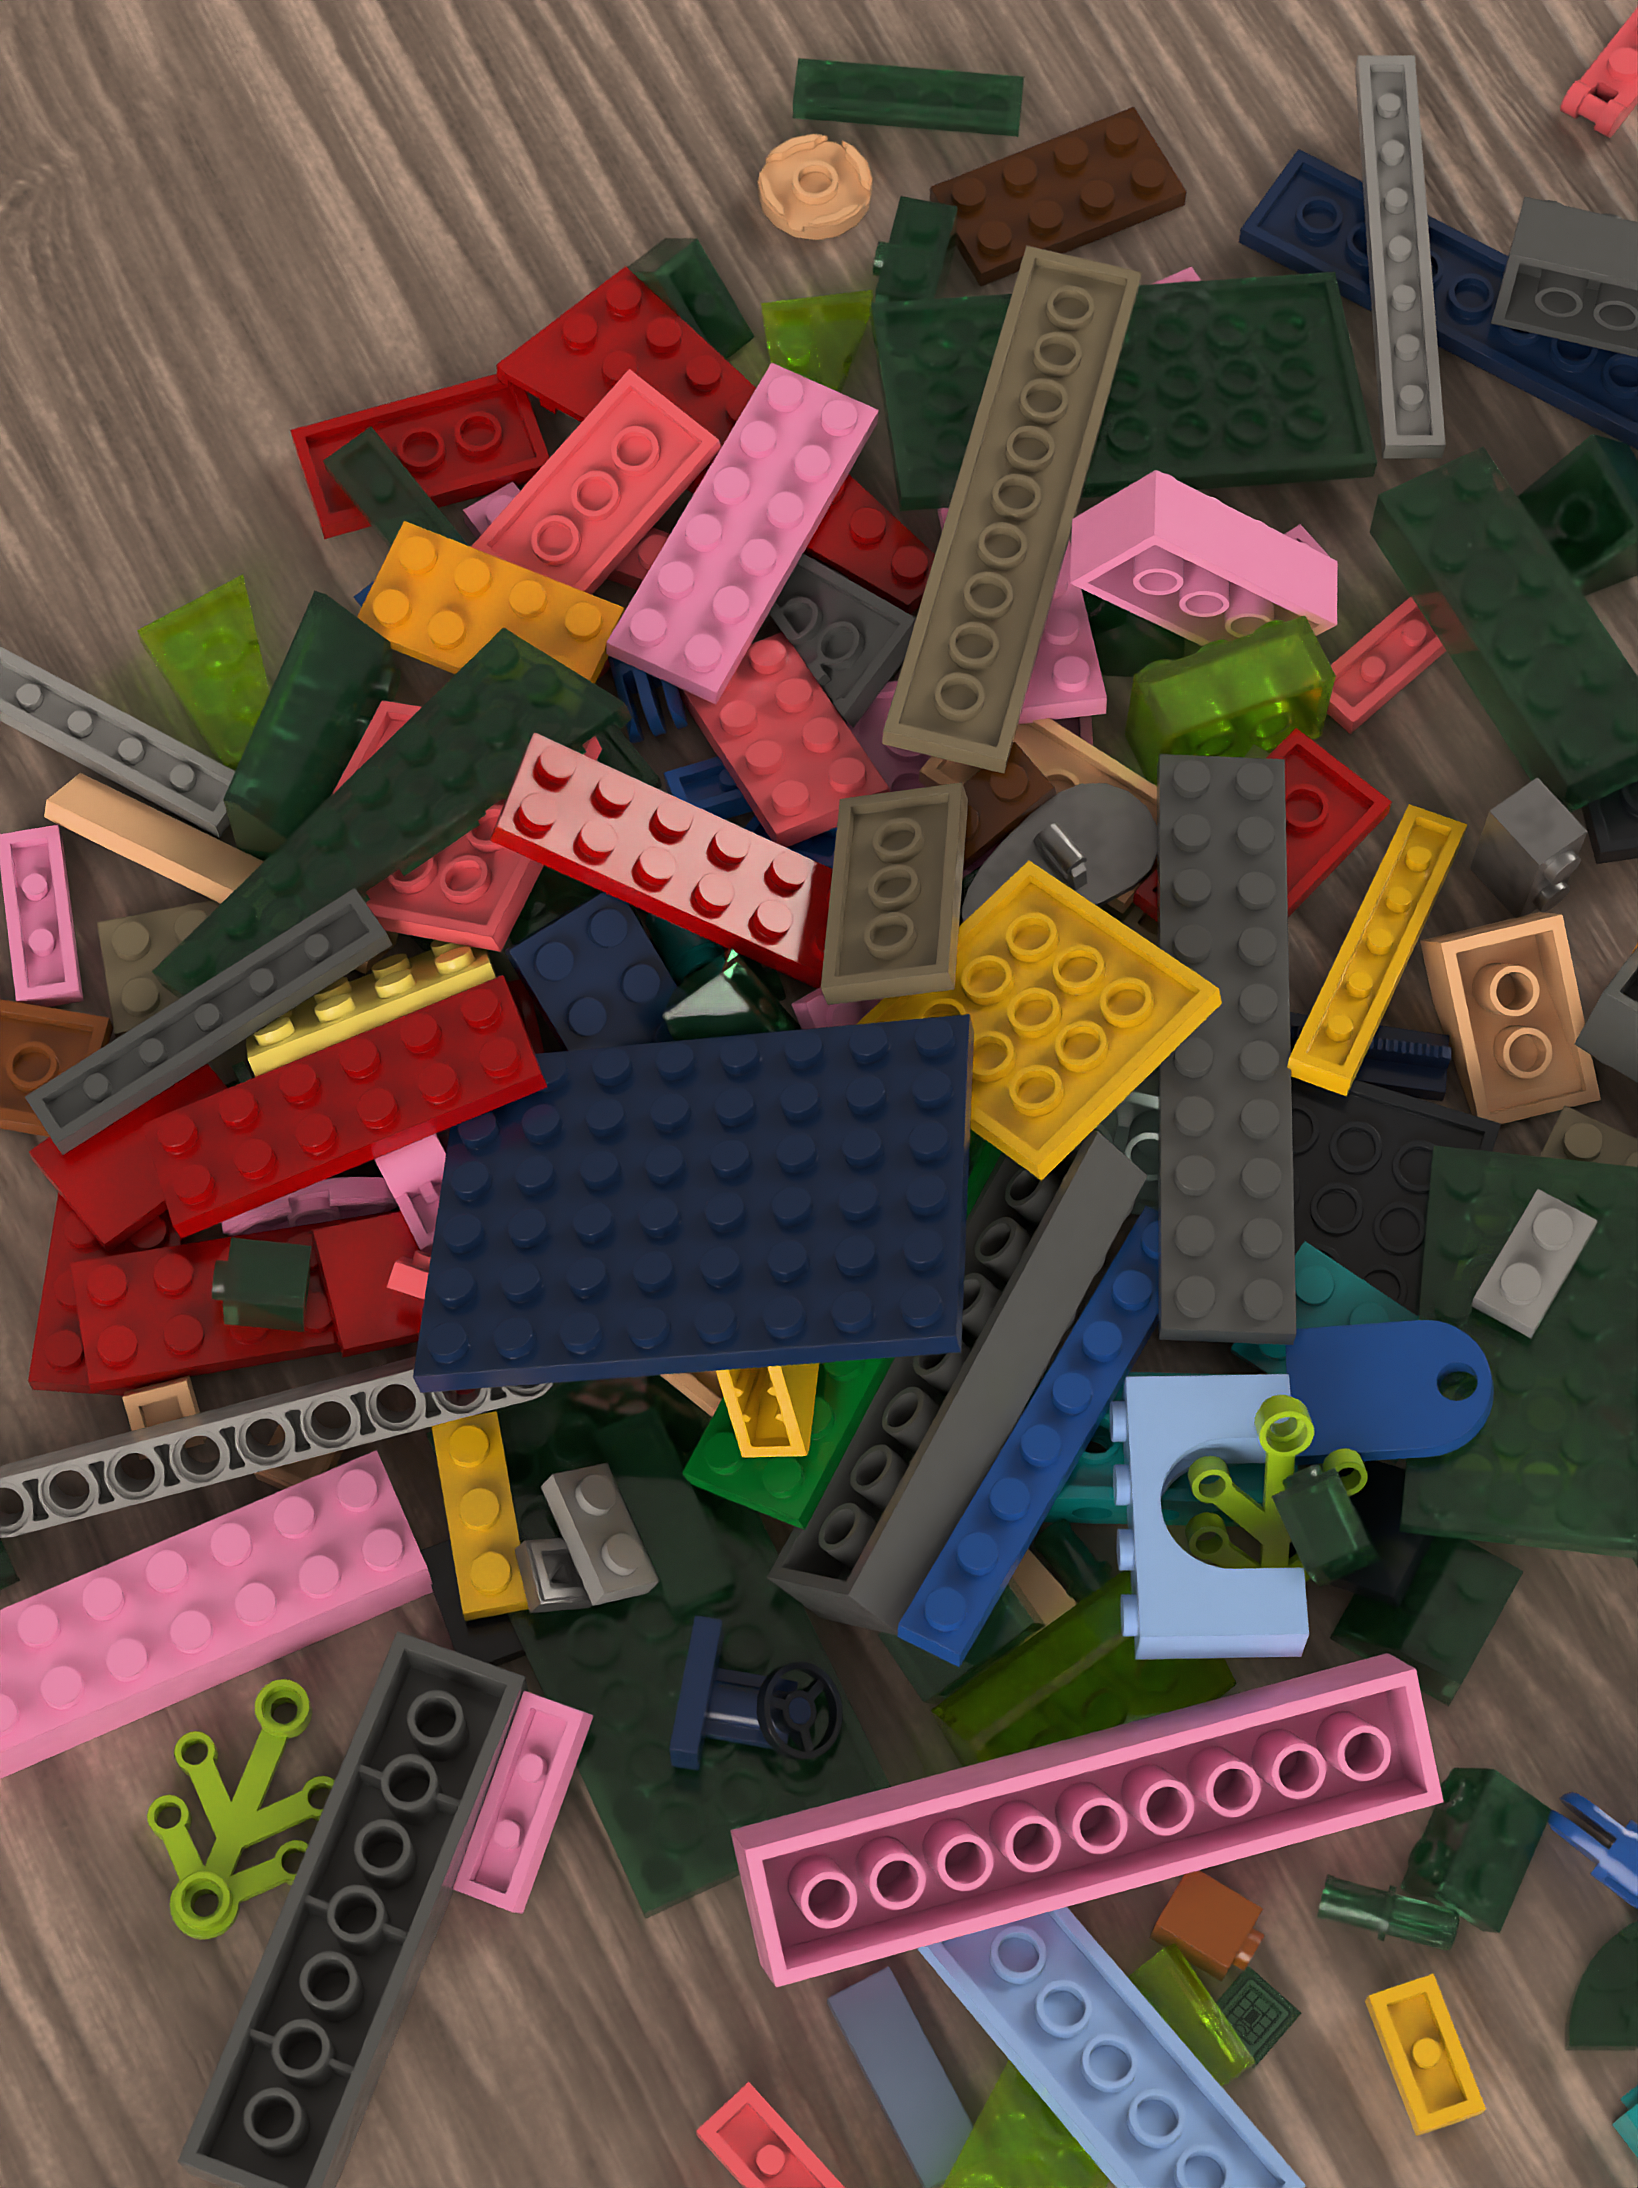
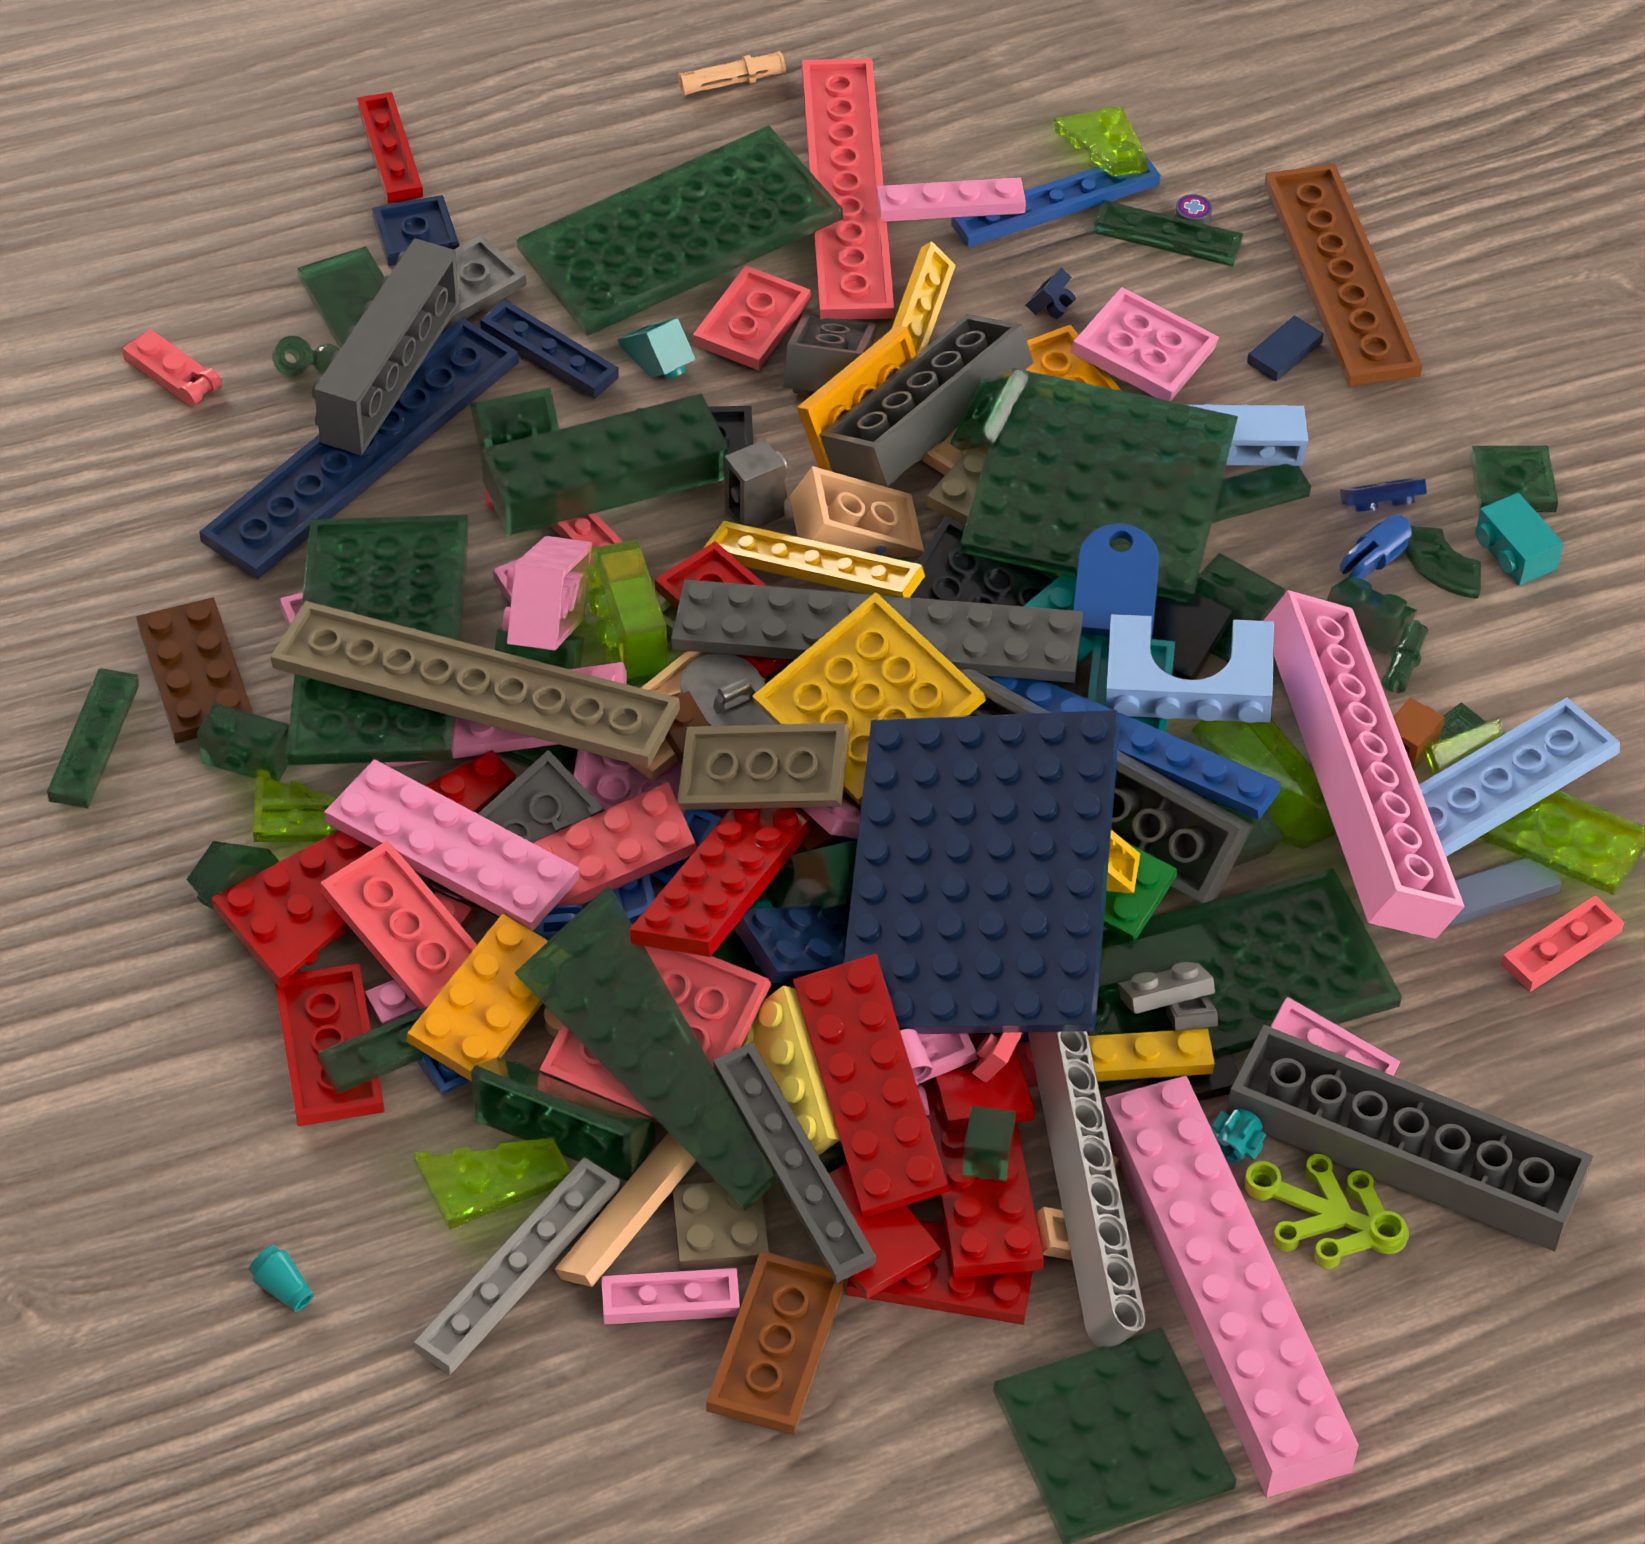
camera: 85 degrees left, 15 degrees down
(45, 458) = (281, 1278): none -> teal cone
(350, 1662) = (1238, 1135): none -> teal gear
(747, 1705) = (1277, 934): dark blue piece -> none
(815, 187) = (150, 802): light nougat tile -> none
(1264, 1523) = (1184, 636): lime plant -> none
(1324, 1525) = (1204, 614): clear green slope -> none
(1399, 258) = (304, 484): light grey plate -> none
(1425, 2054) = (1485, 650): yellow plate -> none
(1534, 1263) = (1048, 500): light grey plate -> none

